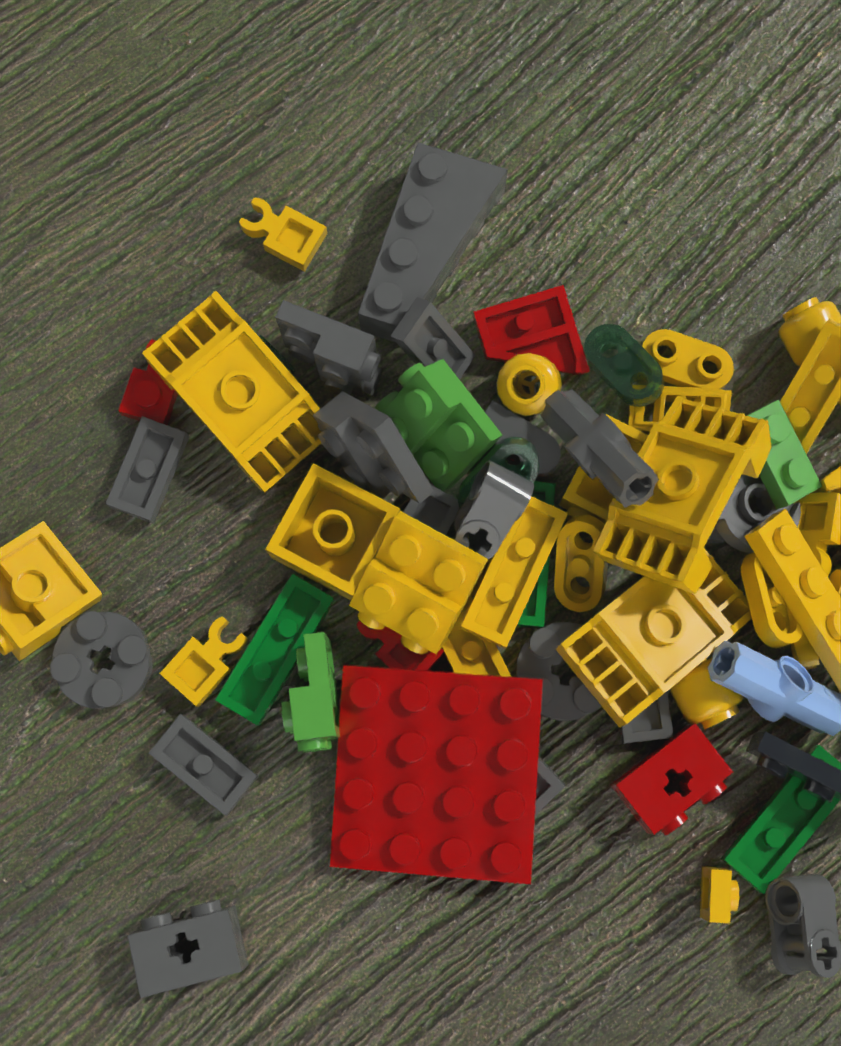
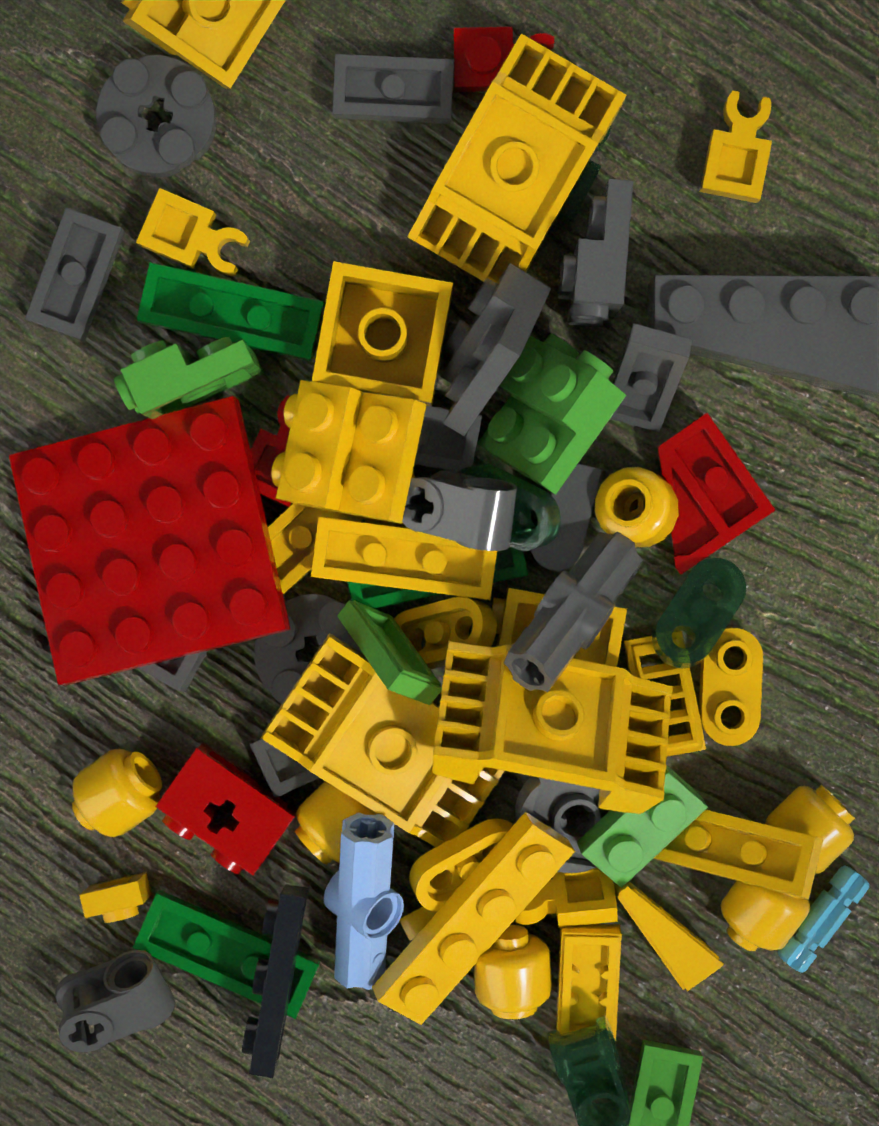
camera: 75 degrees right, 10 degrees up
(586, 602) = (389, 652): none -> bright green tile
(631, 866) = (116, 792): none -> yellow head

